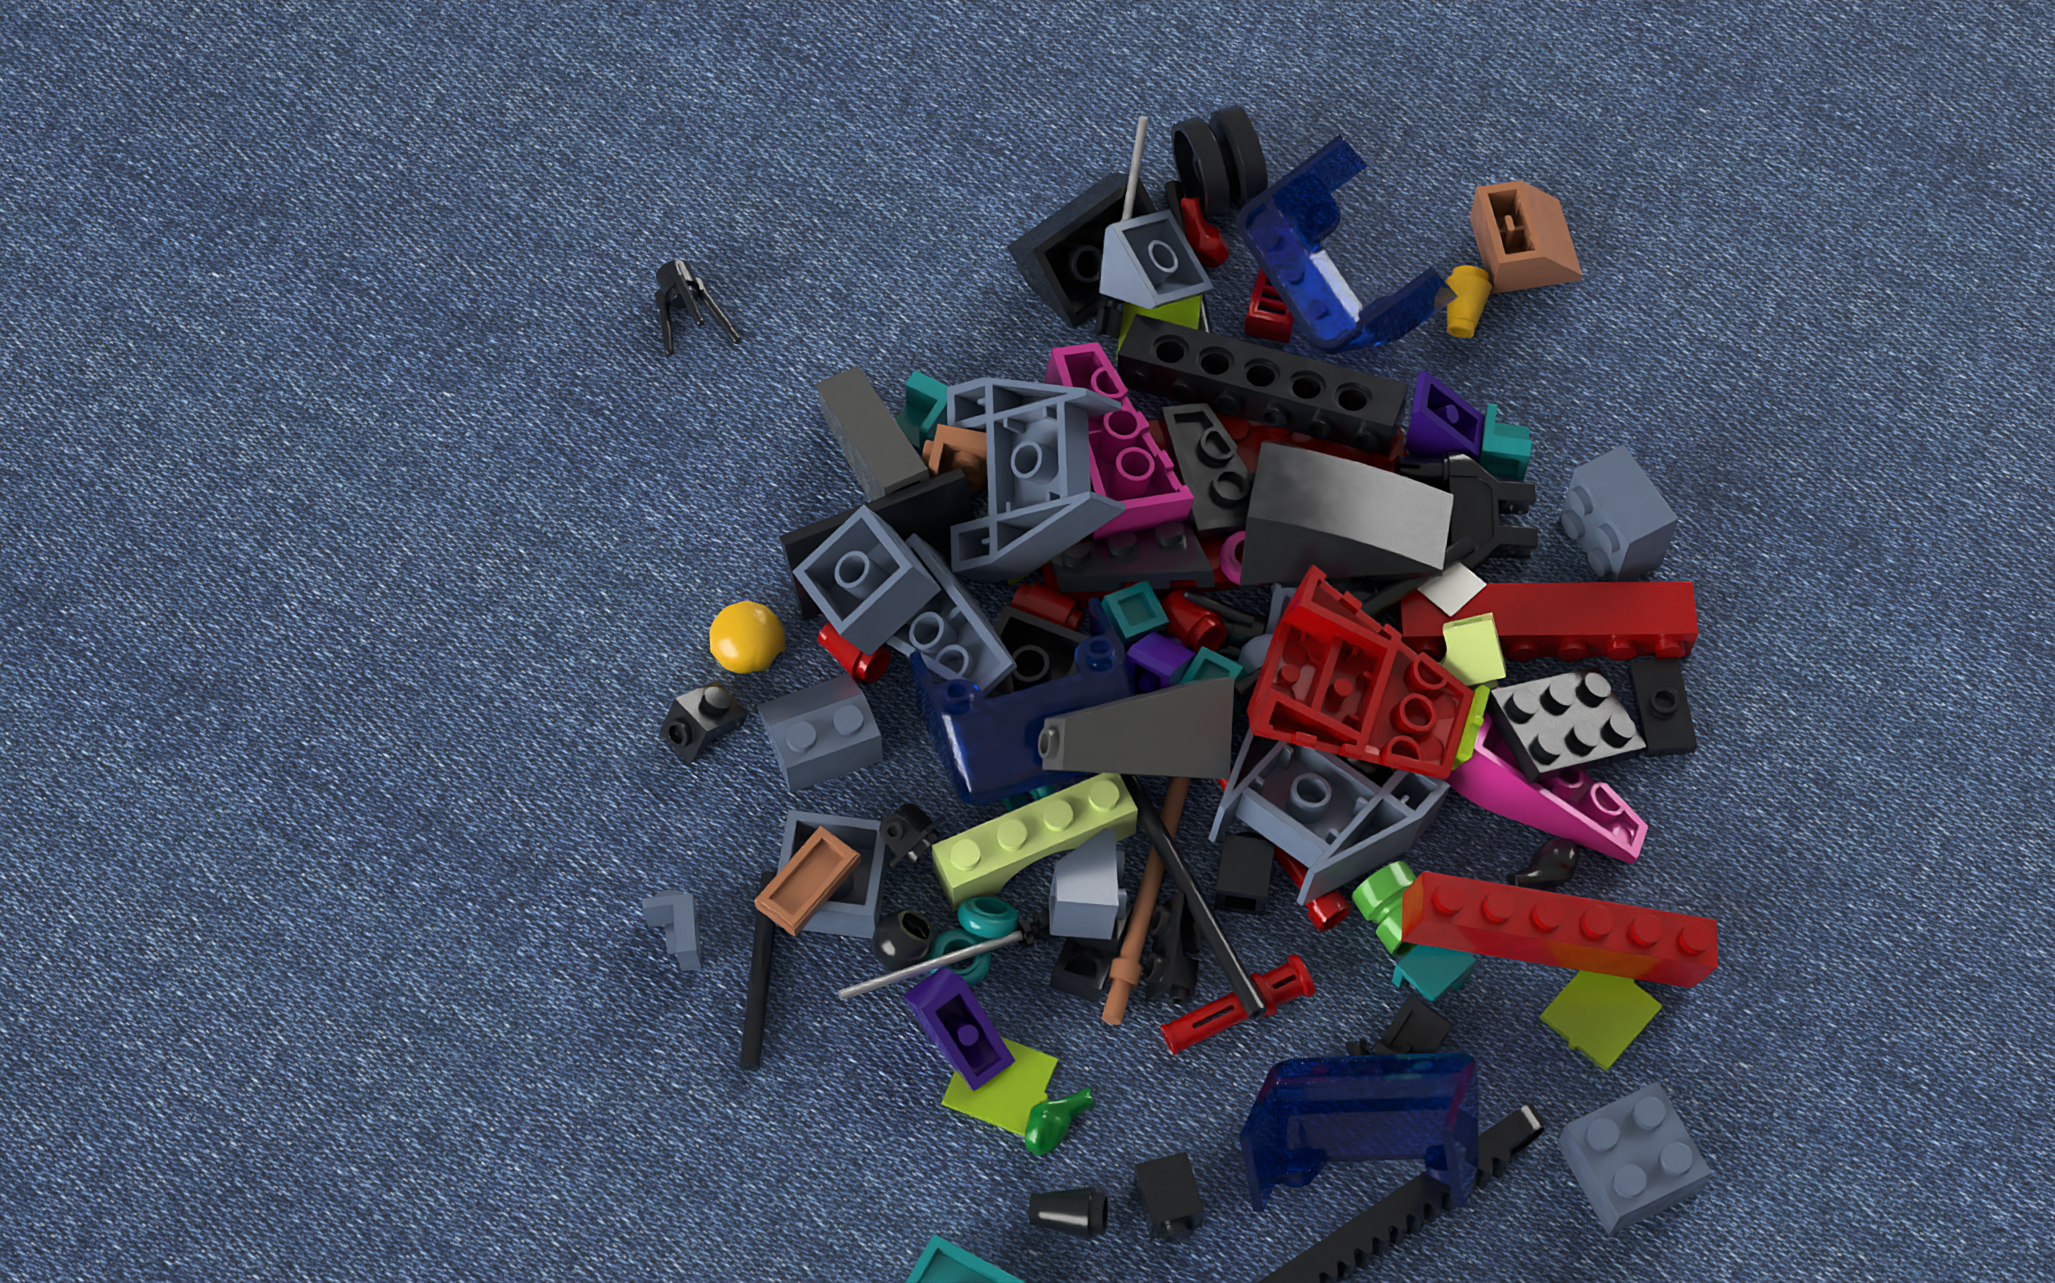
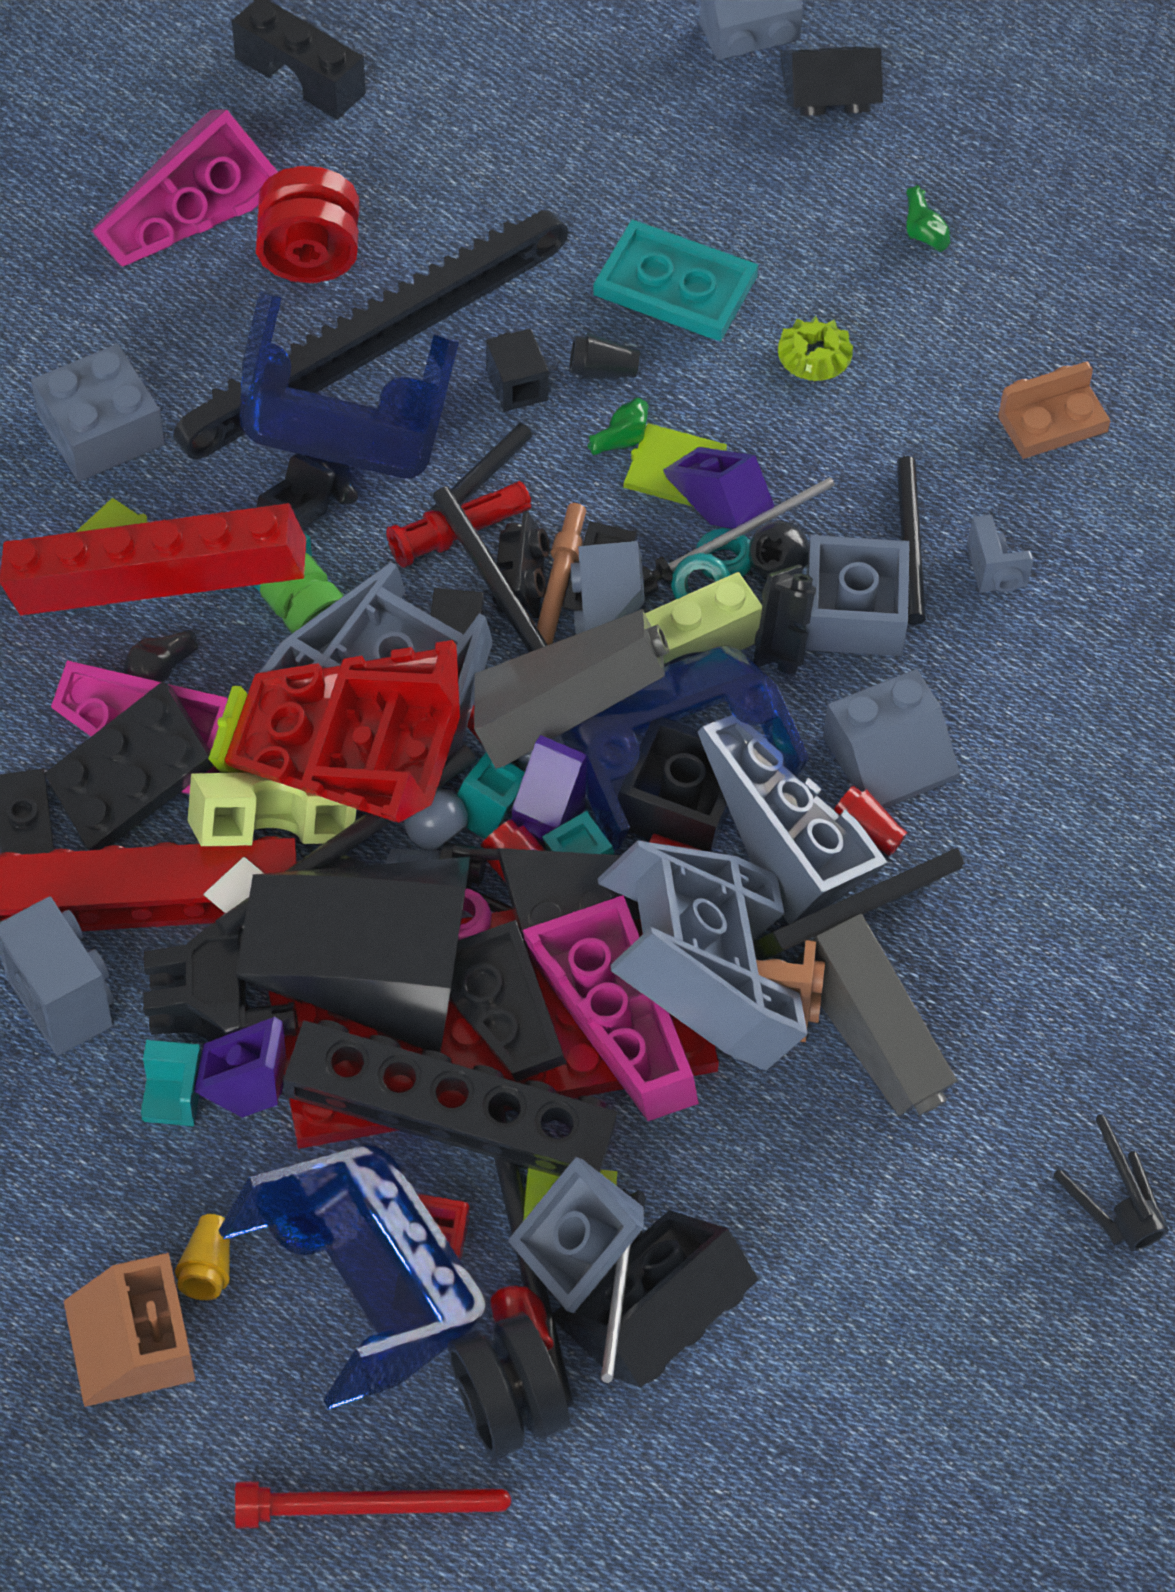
camera: 175 degrees right, 5 degrees down
(577, 1116) = (1052, 410): none -> nougat bracket
(701, 718) = (1009, 748): black bracket -> none
(746, 637) = (983, 832): yellow hair -> none
(807, 881) = (877, 553): nougat tile -> none
(831, 1245) = (823, 362): none -> lime gear
(866, 580) = (864, 823): sand blue brick -> none
(923, 409) = (829, 1083): teal panel -> none
(1213, 1076) = (490, 464): none -> black bar
(1416, 122) = (257, 1504): none -> red piece

